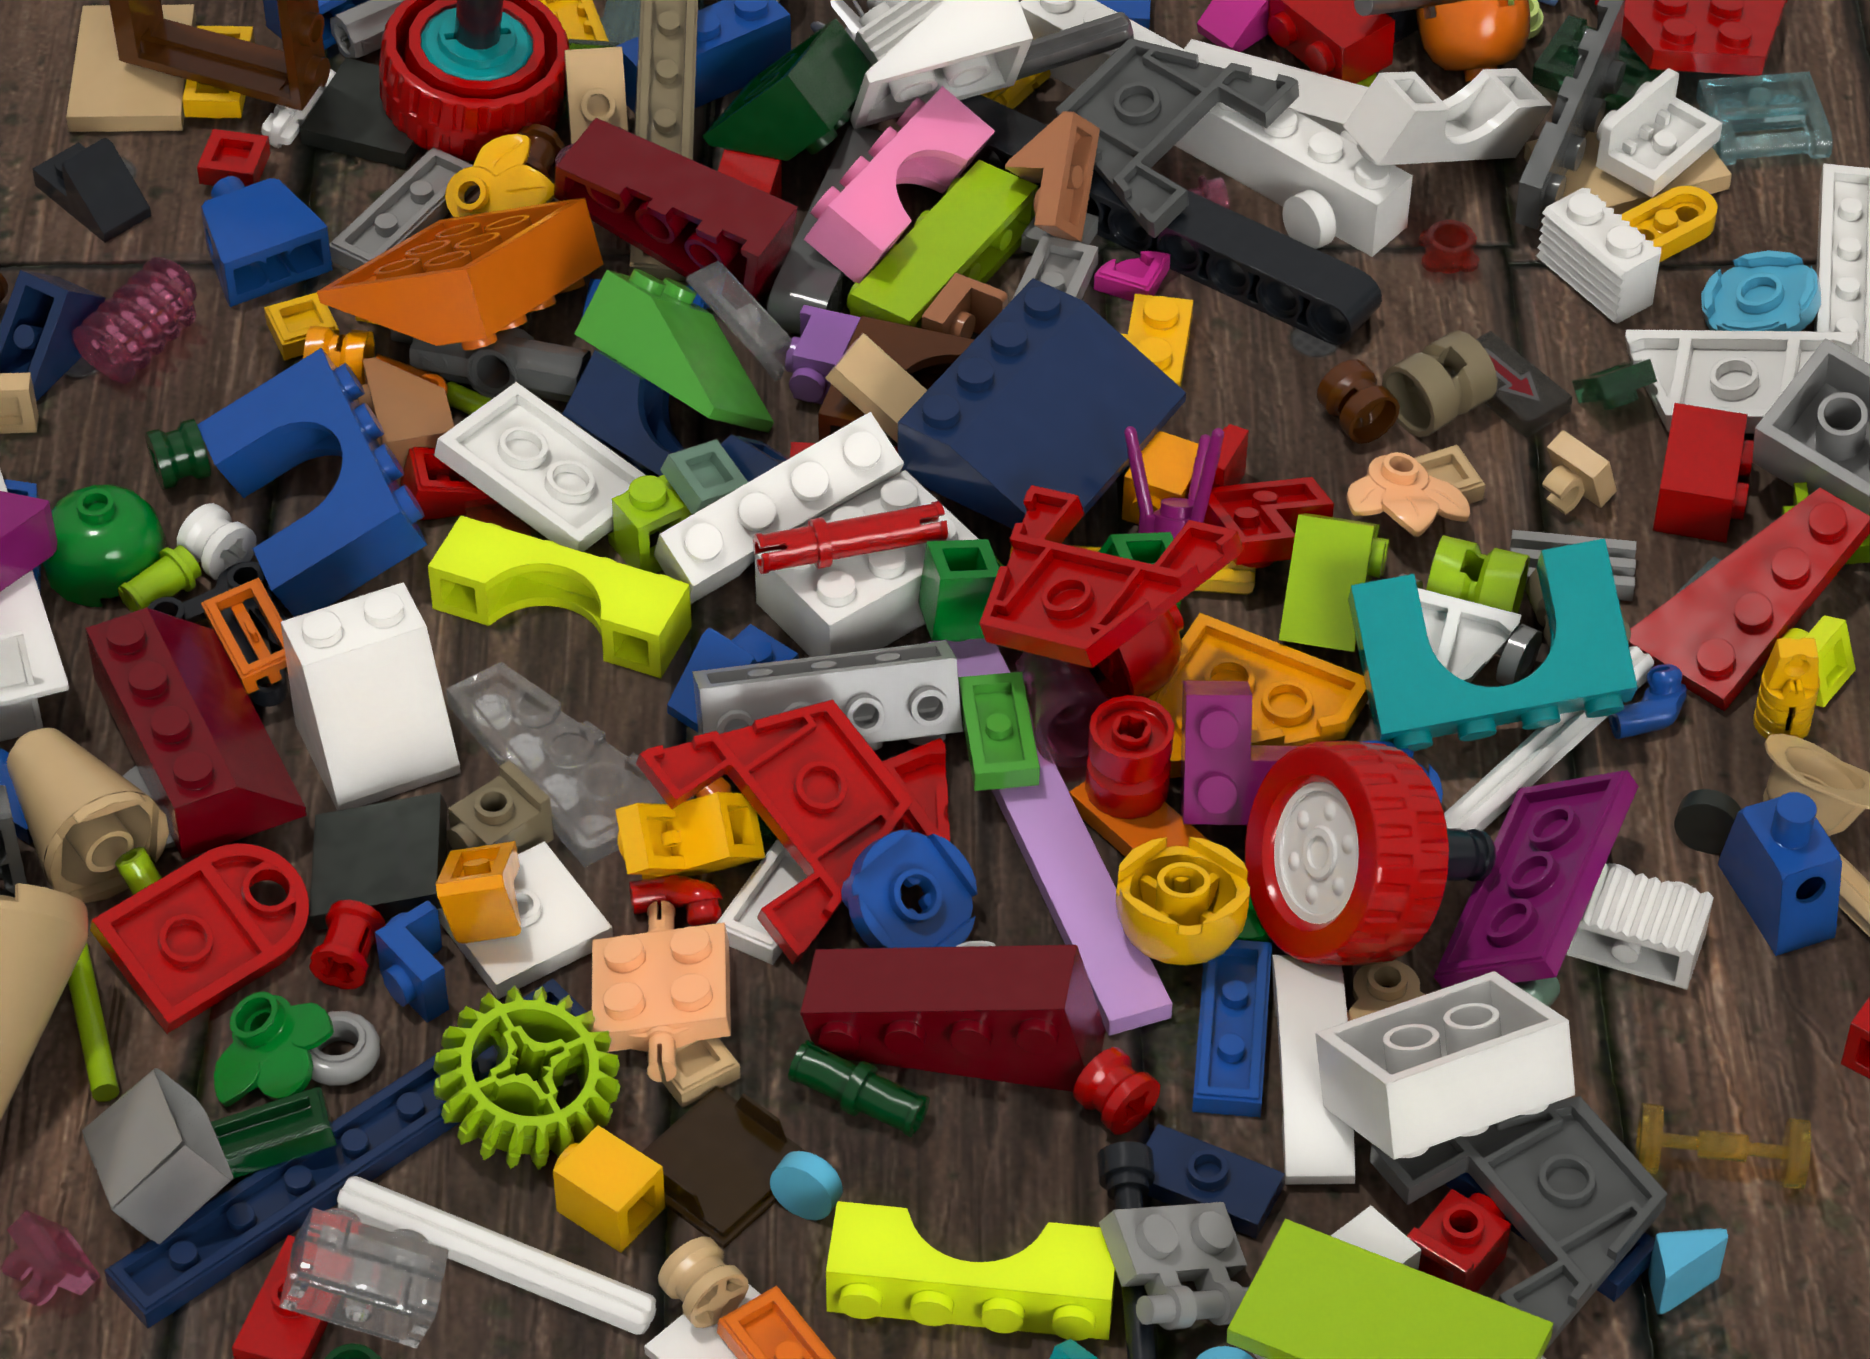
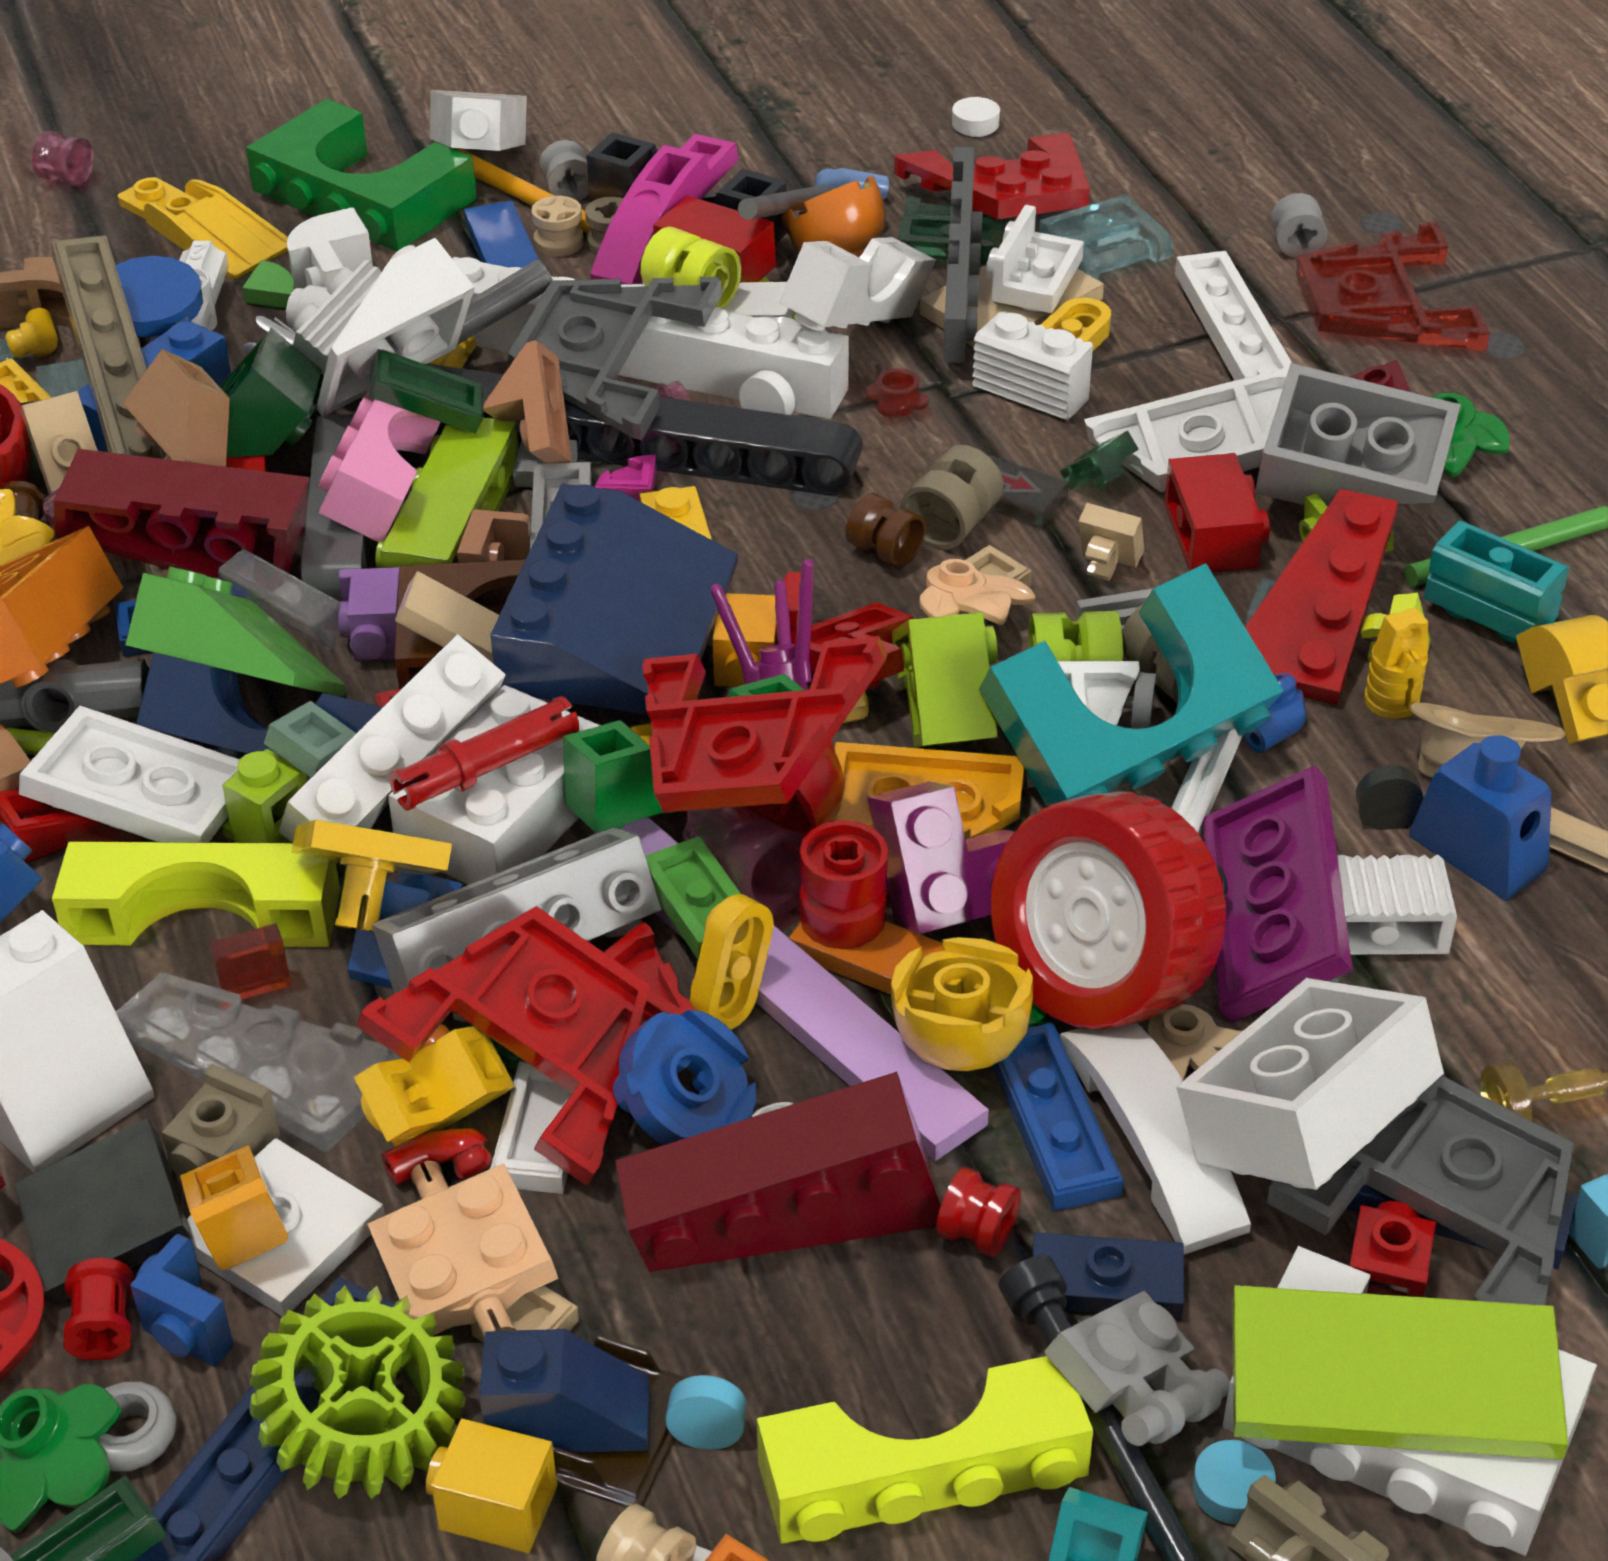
camera: 20 degrees left, 5 degrees down
(581, 675) = (251, 962): none -> clear red tile
(691, 1130) = (563, 1391): none -> dark blue slope
(707, 612) = (368, 859): none -> yellow tile
(708, 102) = (181, 411): none -> medium nougat slope
(858, 1088) = (713, 1292): dark green pin -> none
(954, 134) = (426, 390): none -> dark green tile
(997, 801) = (732, 959): none -> yellow plate
(1280, 43) = (687, 258): none -> neon yellow wheel
(1762, 294) = (1182, 363): medium azure tile -> none

